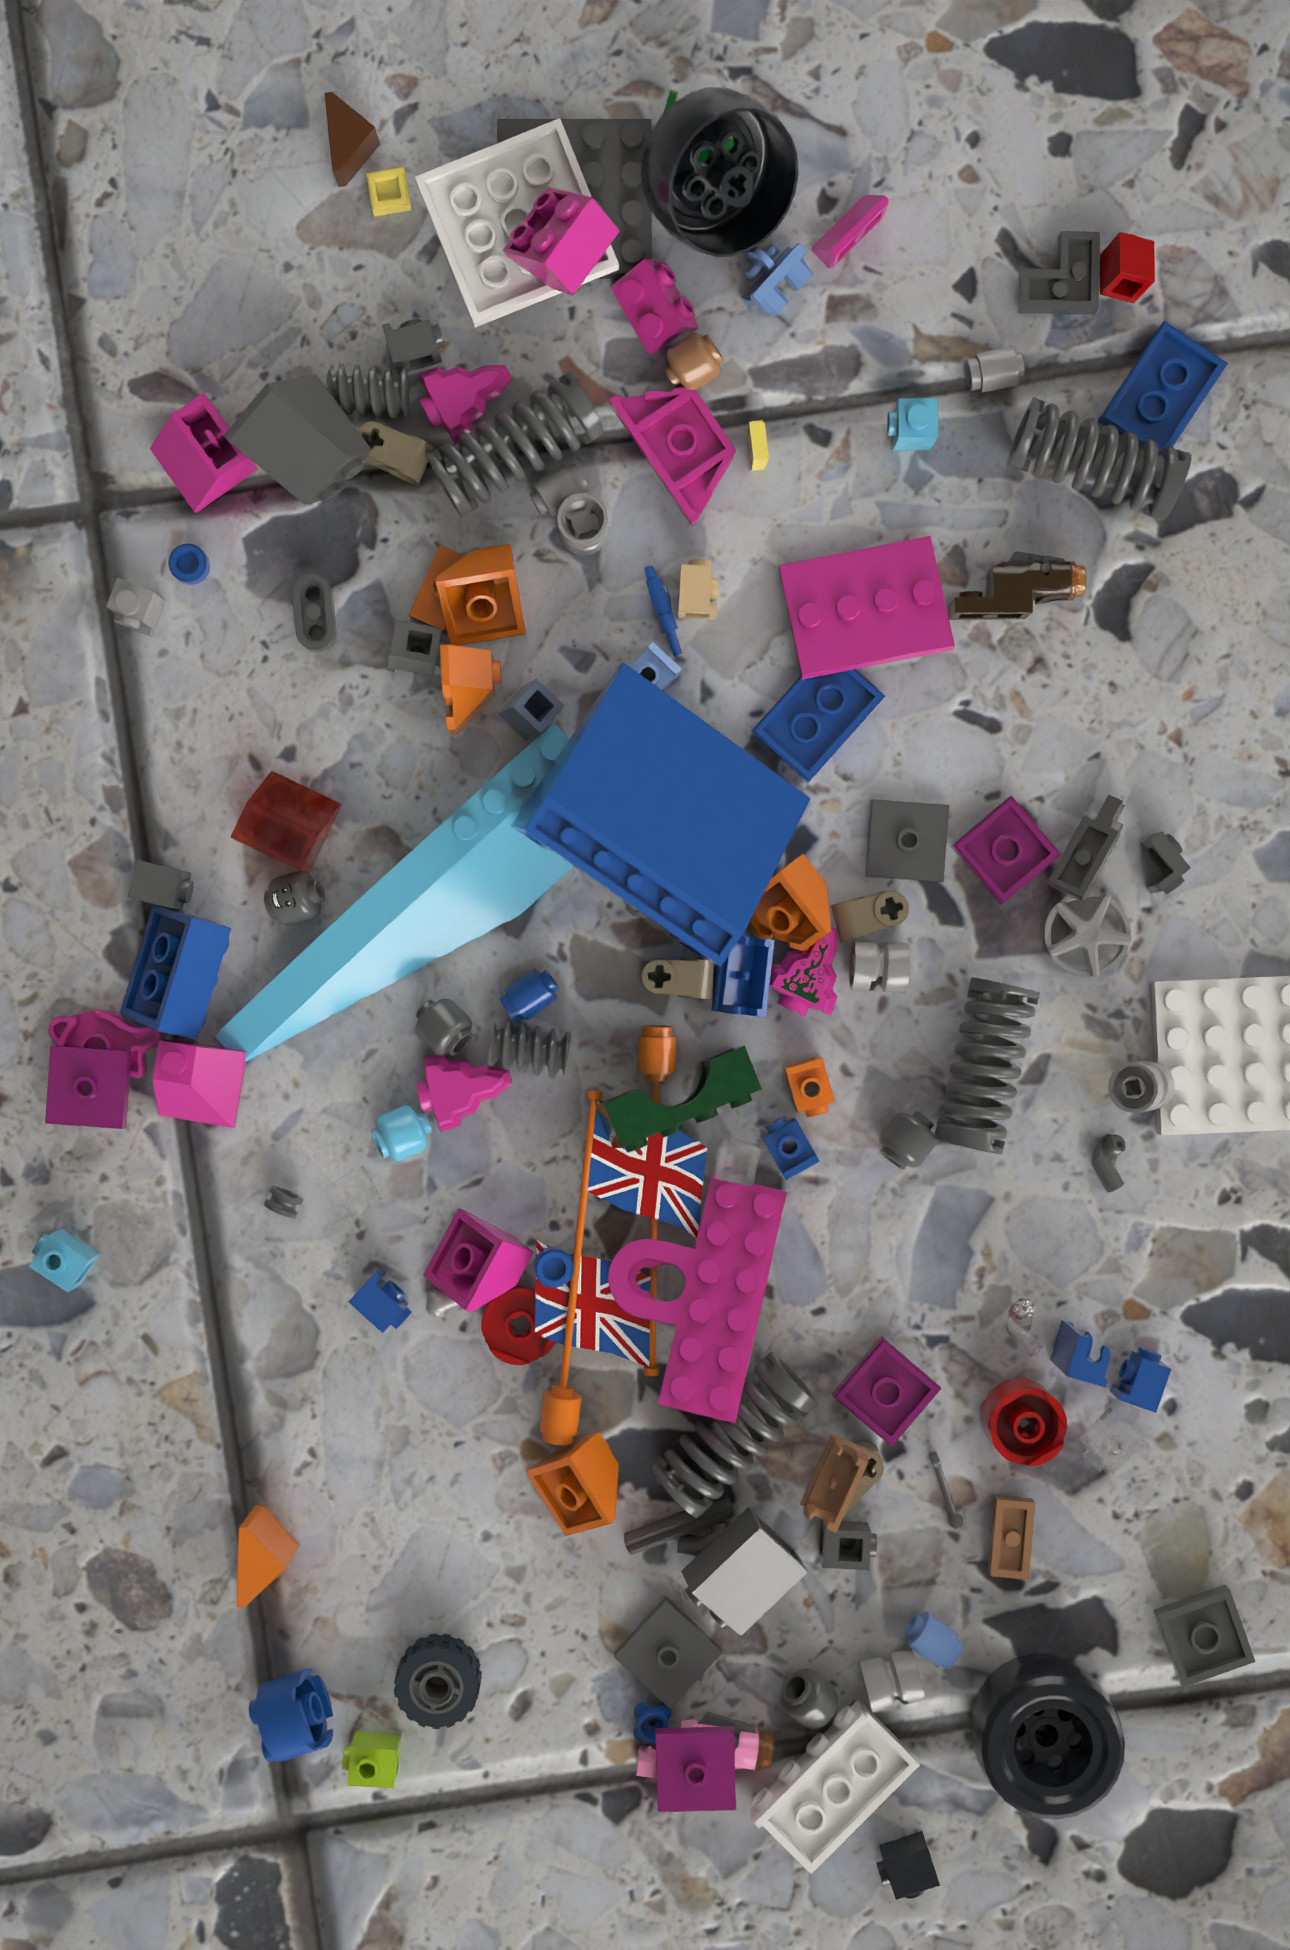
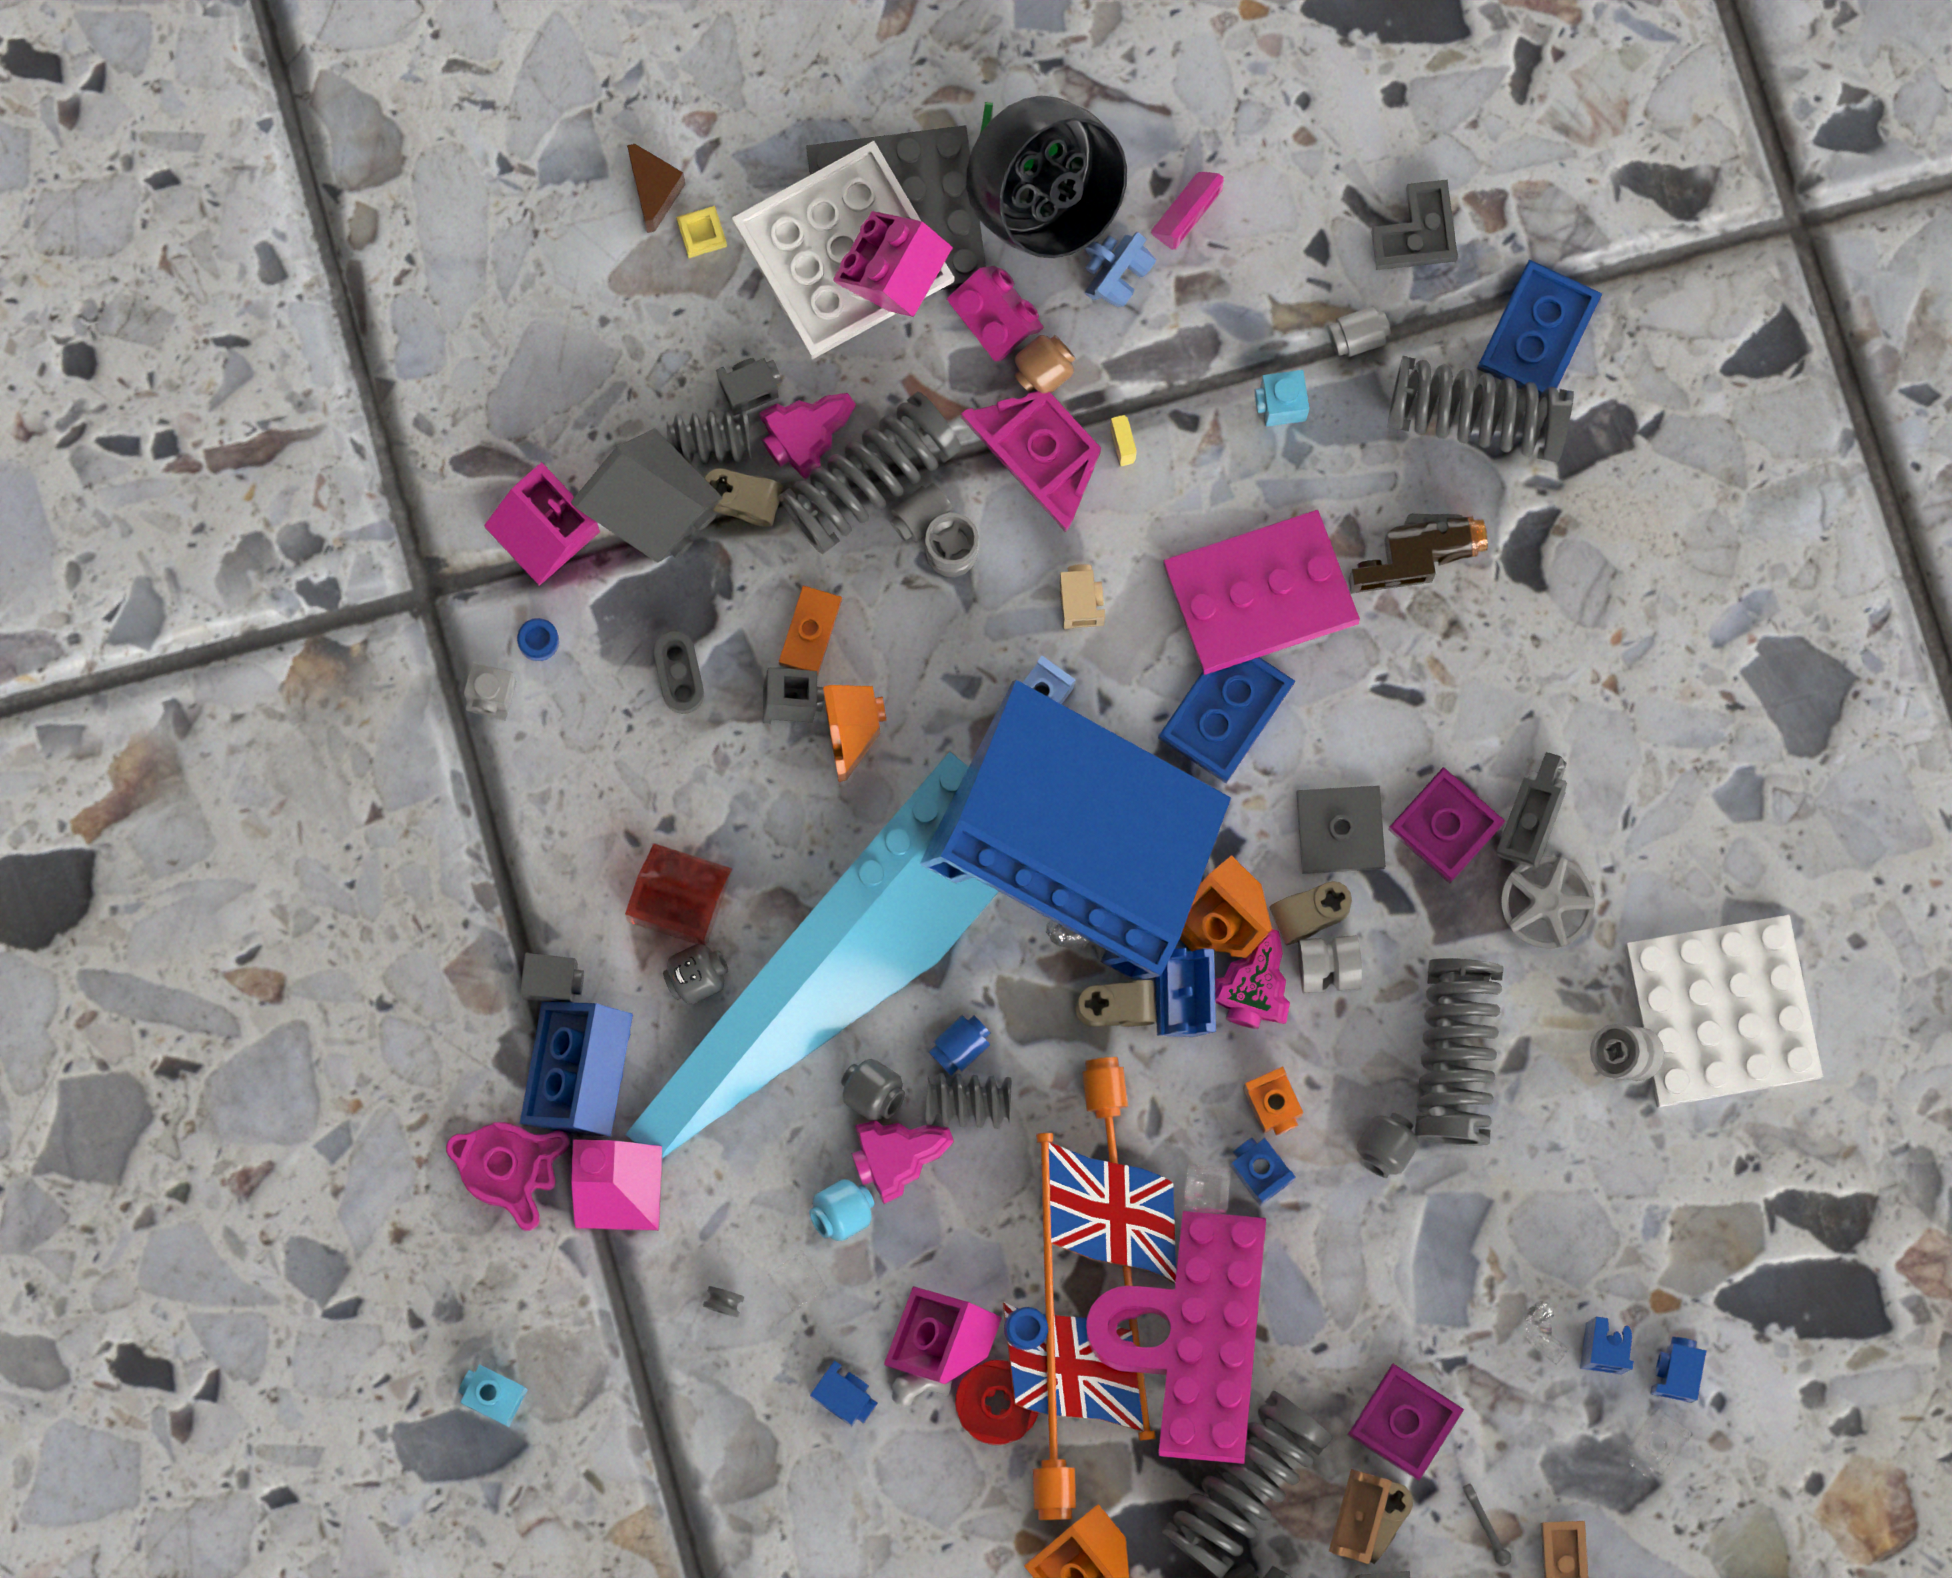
camera: 10 degrees left, 10 degrees down
(88, 1087) = (499, 1203): magenta plate -> none
(481, 597) = (855, 633): orange slope -> none
(531, 709) = (923, 742): sand blue brick -> none
(662, 605) = (1046, 619): blue hand -> none
(721, 1081) = (1092, 1152): dark green arch -> none
(1045, 1416) = (1582, 1431): red brick -> none
(1104, 1159) = (1604, 1139): dark grey arm -> none
(1127, 267) = (1480, 212): red brick -> none
(1165, 853) = (1618, 808): dark grey bracket -> none

